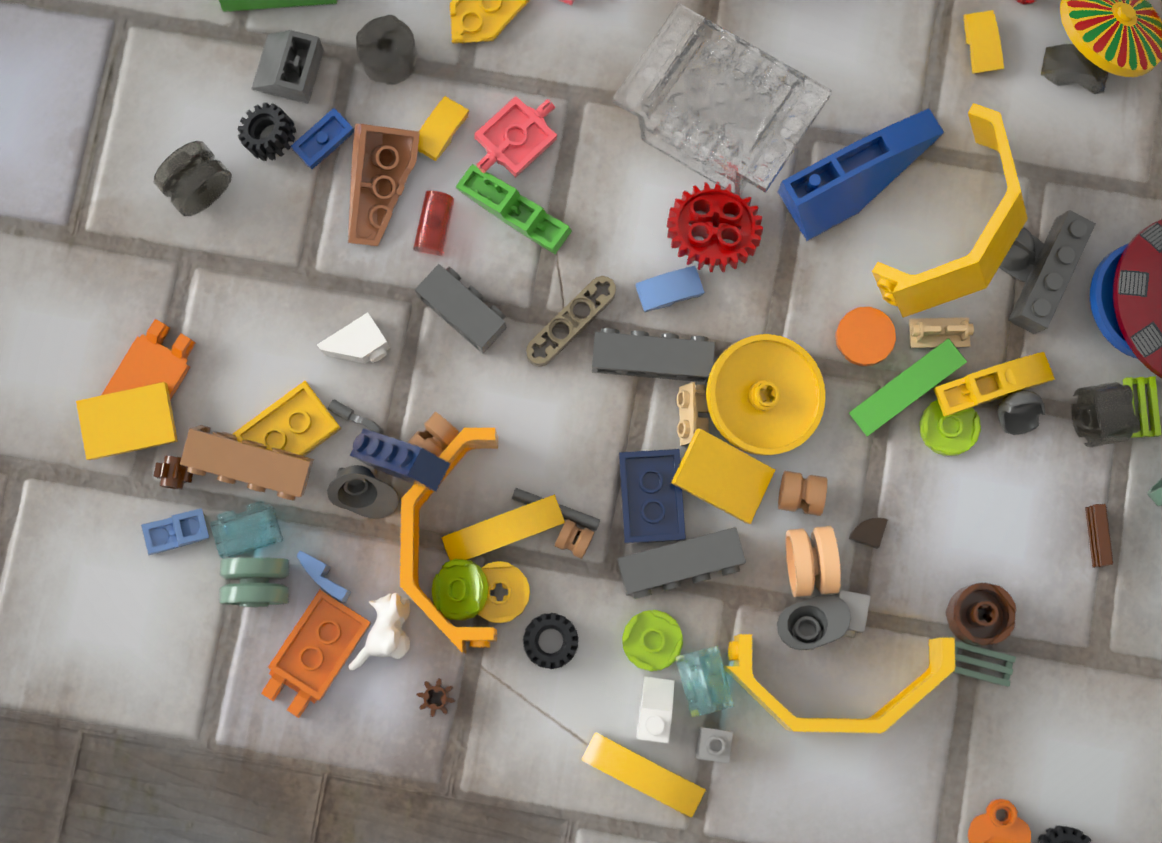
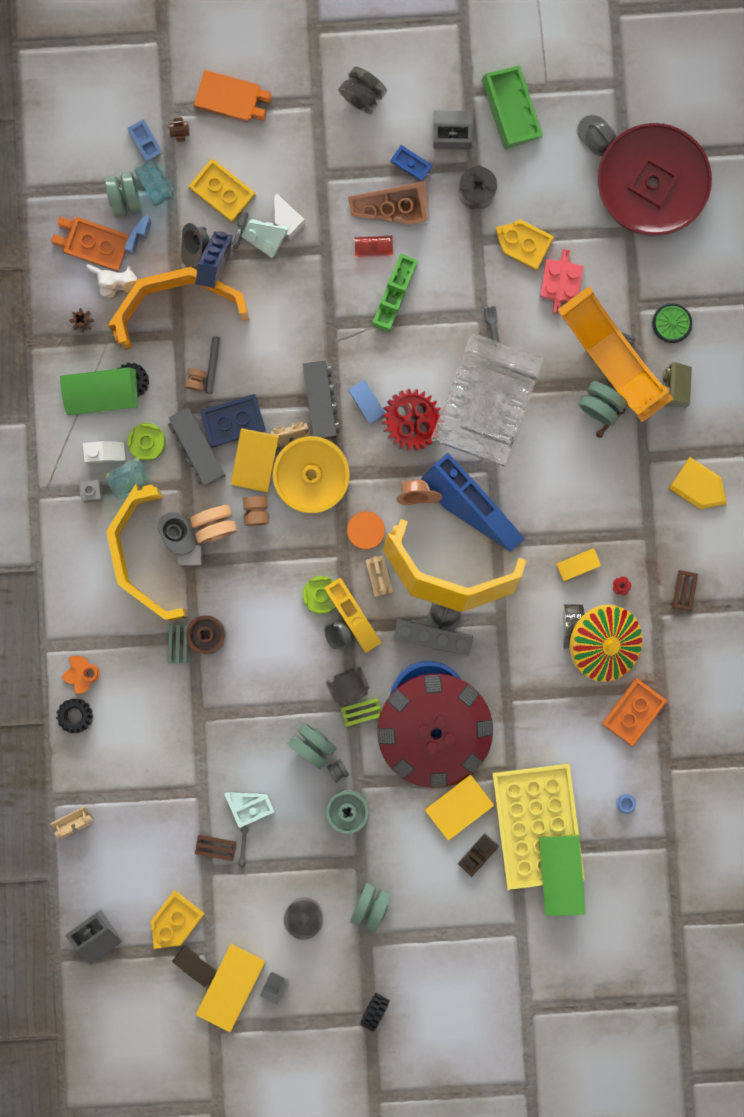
camera: 80 degrees right, 5 degrees up
(126, 421) = (203, 92): yellow tile -> none
(246, 462) = (193, 170): medium nougat wedge -> none
(275, 141) = (405, 118): black tyre -> none
(377, 379) = (265, 236): none -> light aqua wing
(436, 436) = (236, 280): medium nougat wheel -> none
(440, 127) = (437, 234): yellow slope -> none
(460, 589) = (148, 318): lime tile -> none
(461, 307) = (323, 276): dark grey brick -> none
(504, 529) = (191, 336): yellow slope -> none
(515, 136) = (441, 282): coral plate -> none
(517, 597) = (144, 337): yellow plate -> none
(558, 694) = (99, 391): none -> bright green slope
(568, 318) = (330, 348): dark tan beam -> none
(585, 80) = (491, 318): none -> dark grey piece
(643, 775) = (64, 454): yellow slope -> none
(825, 243) = (417, 492): none -> nougat piece
(869, 532) = (243, 559): dark brown tile -> none
(908, 387) = (338, 562): bright green slope -> none
(1099, 535) = (272, 699): reddish brown tile -> none

